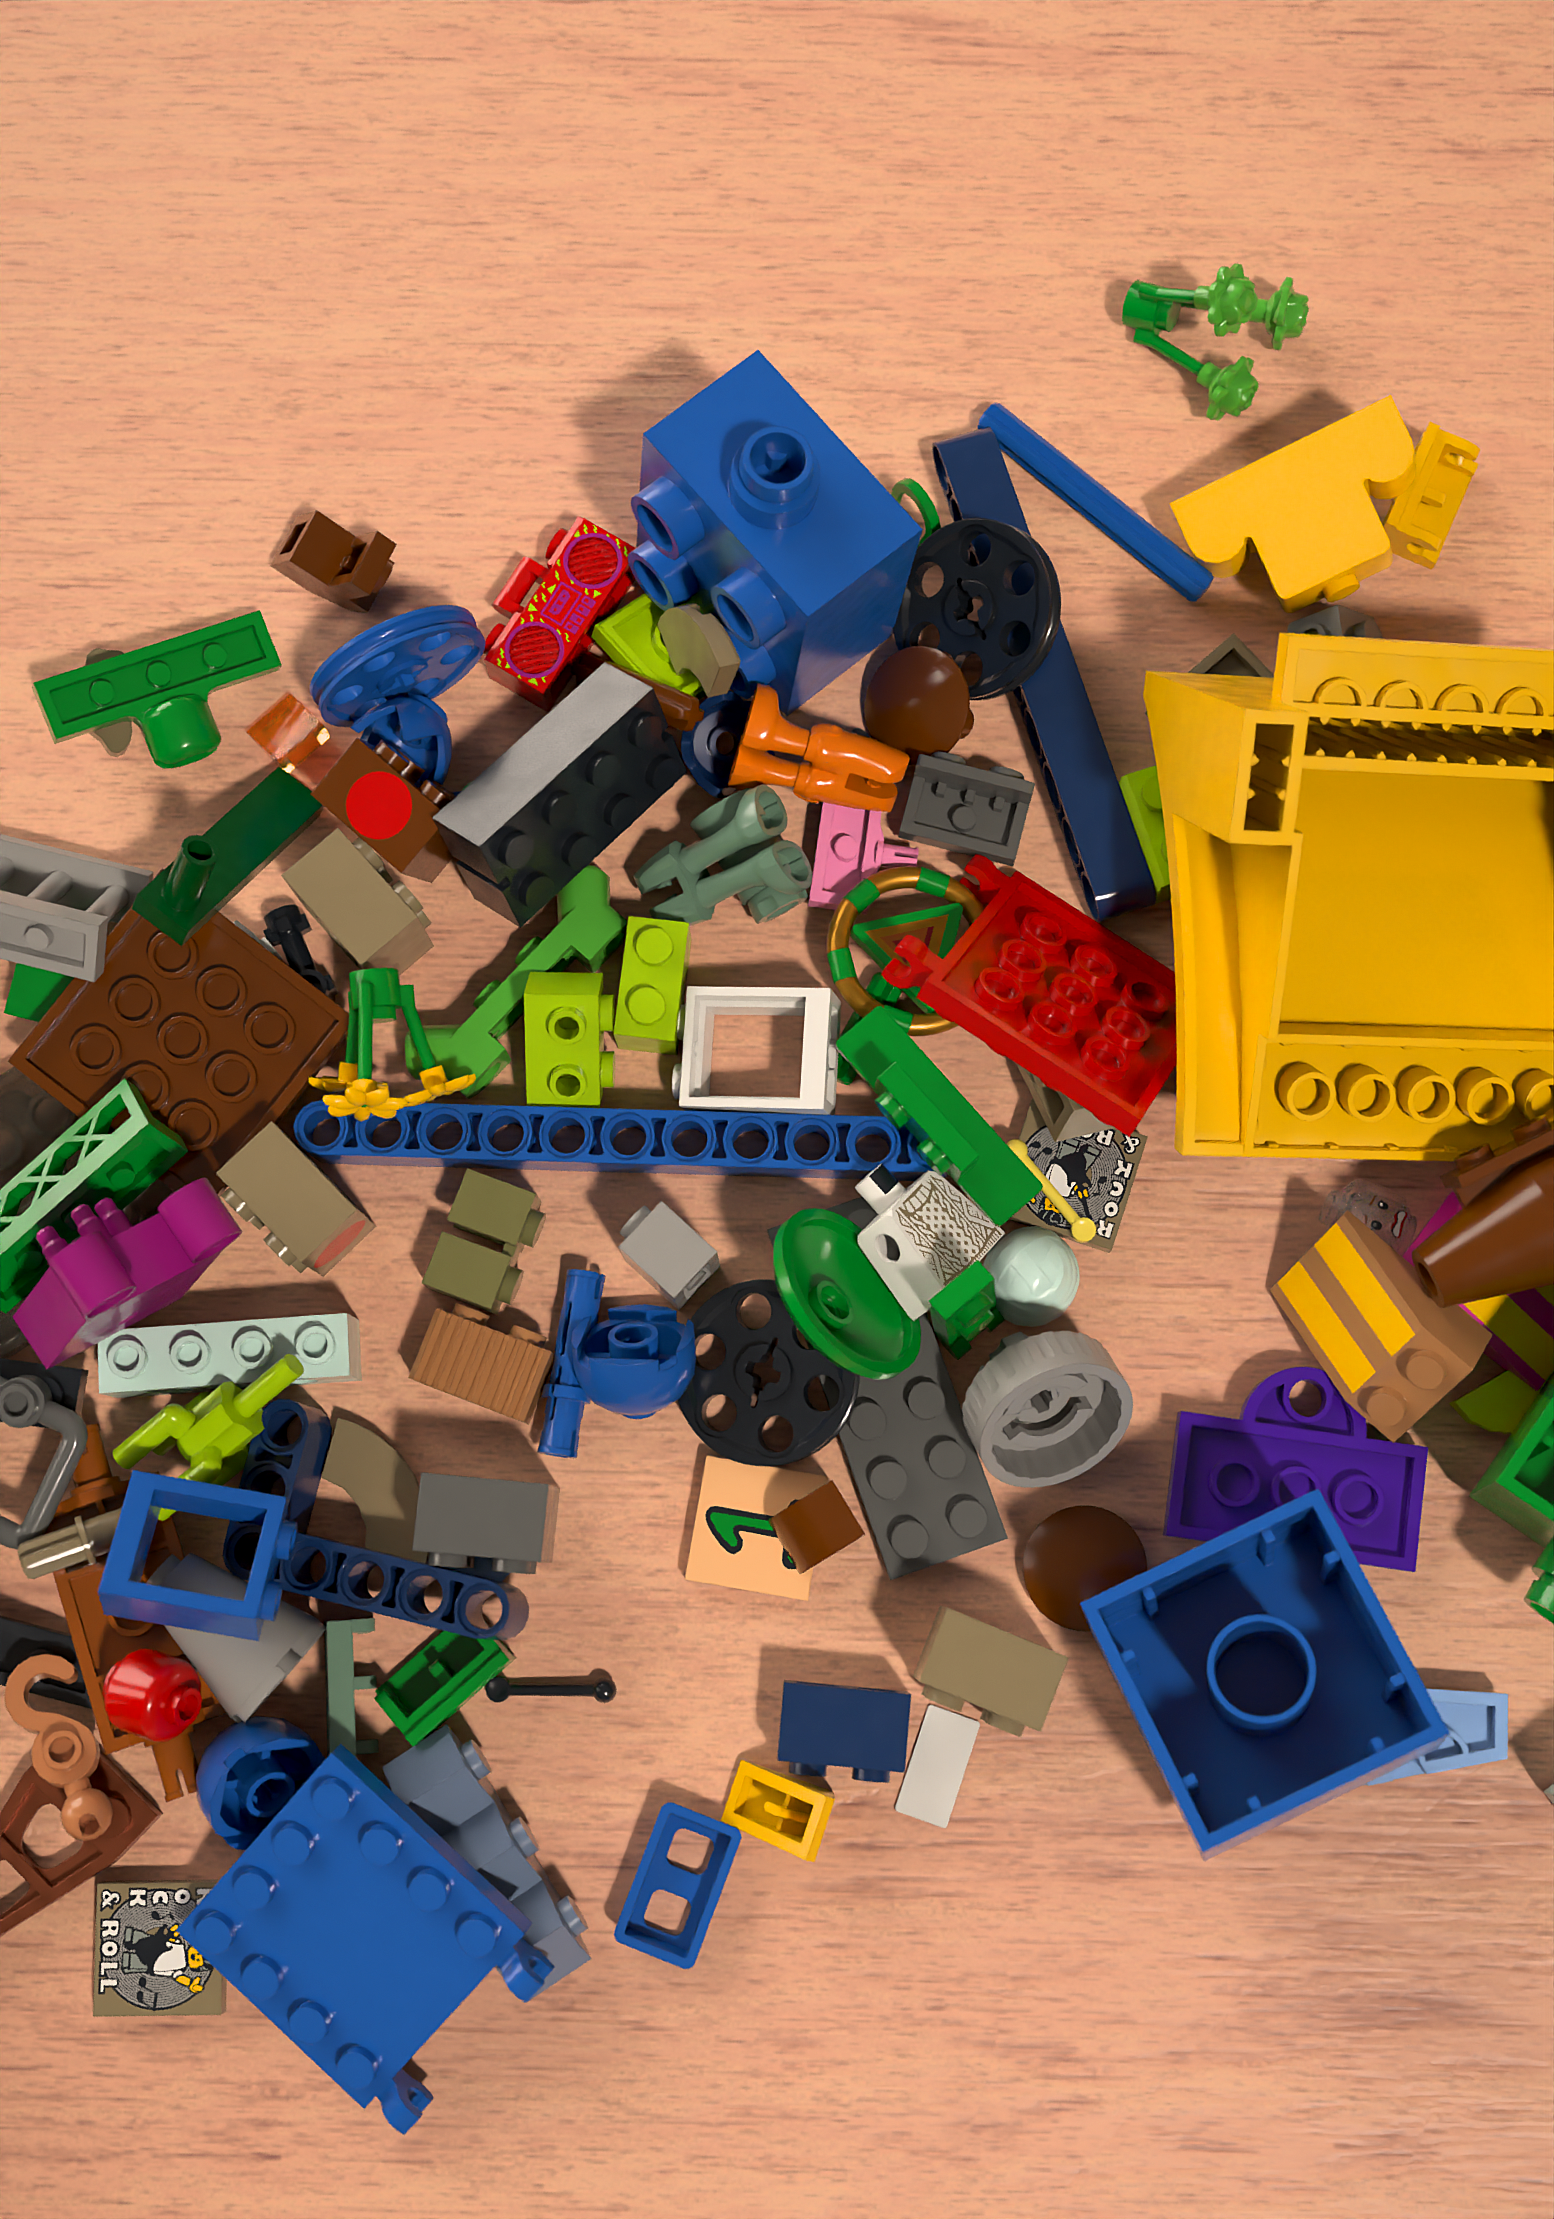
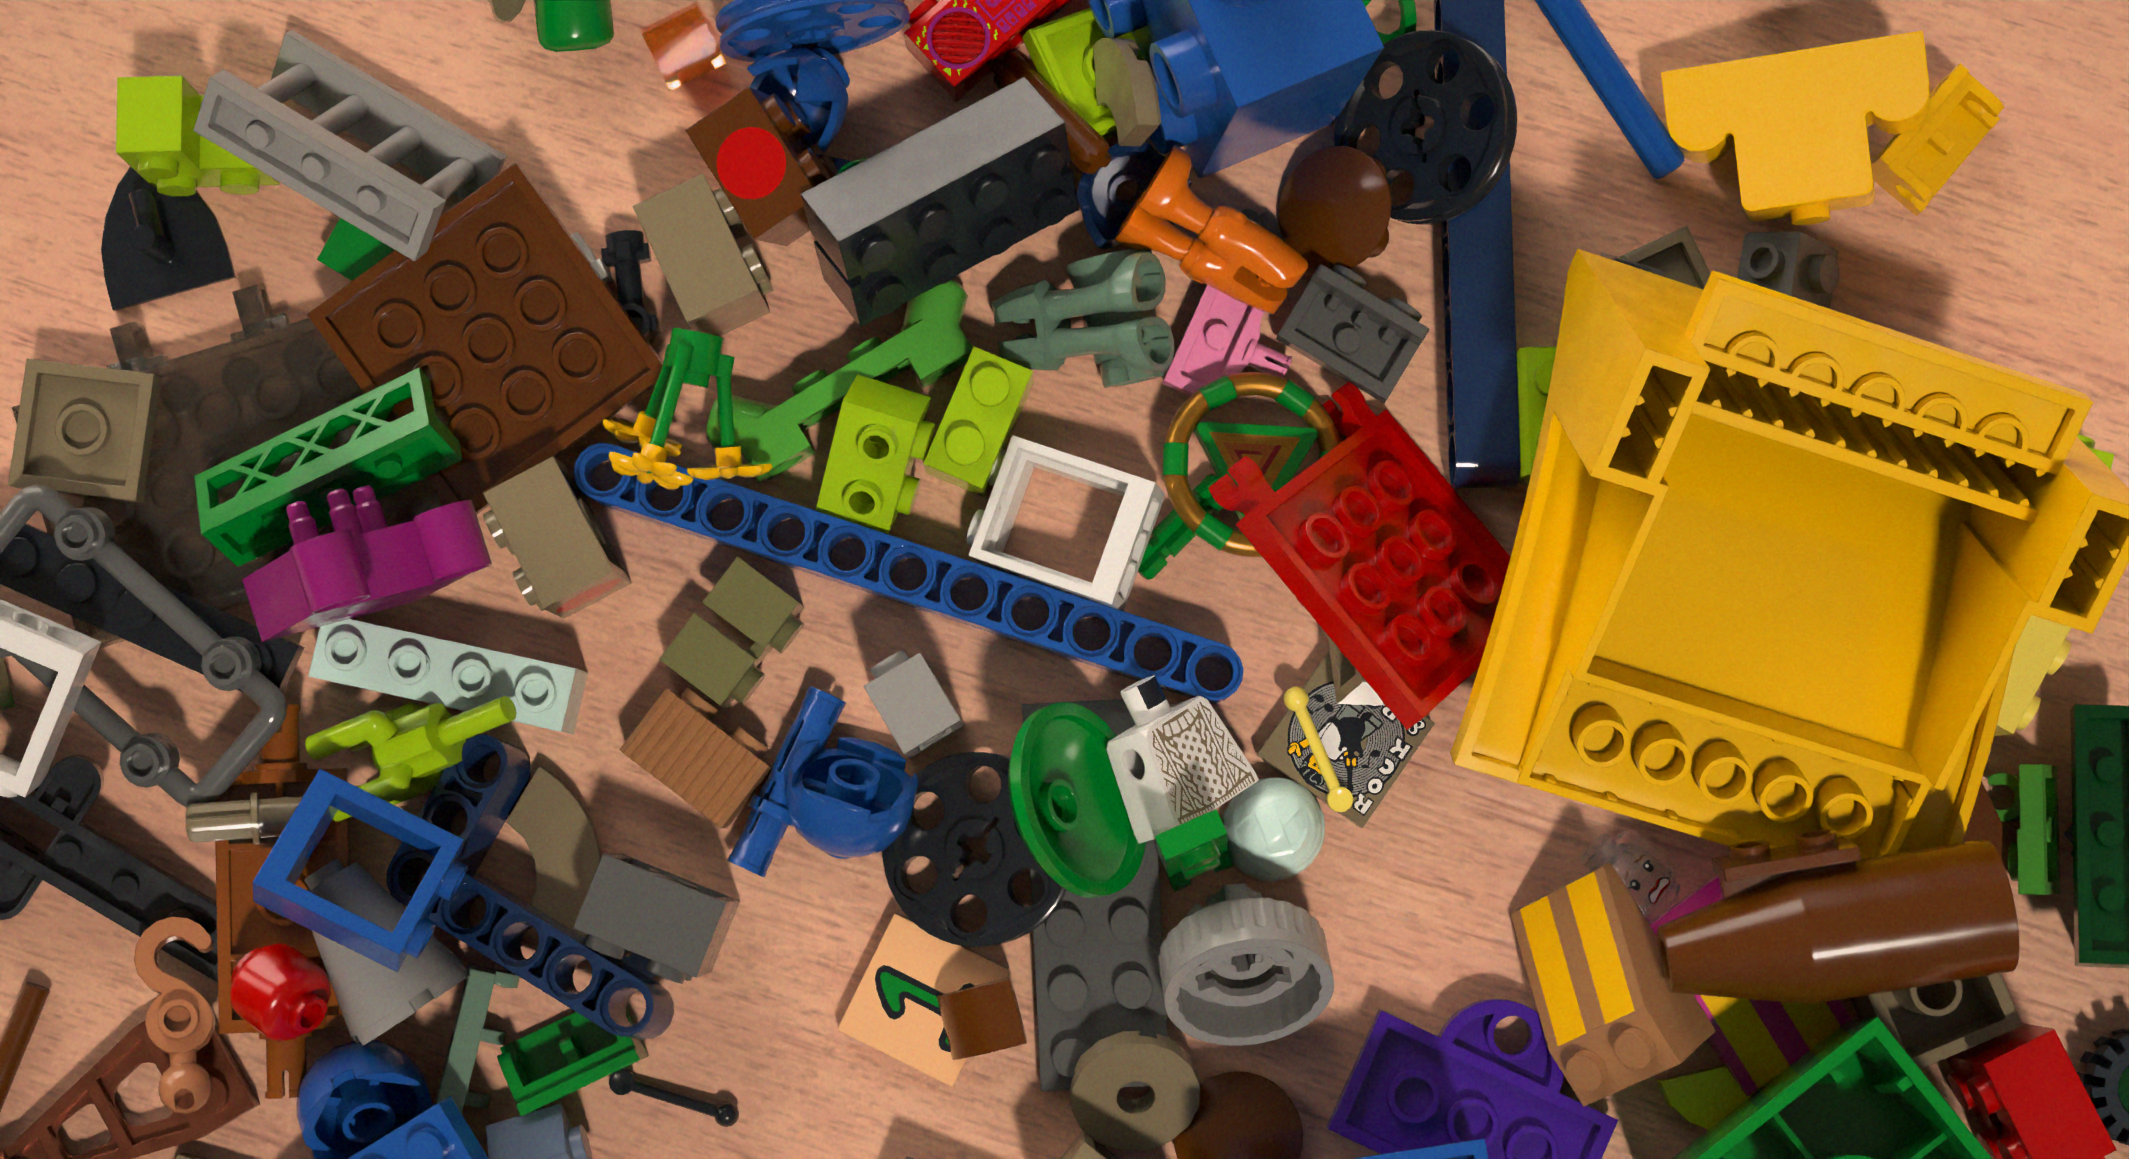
camera: 15 degrees right, 5 degrees up
(227, 856) = (585, 166): dark green piece -> none
(938, 1115) = (1226, 645): green bracket -> none
(997, 1577) = (1140, 1121): none -> dark tan tile

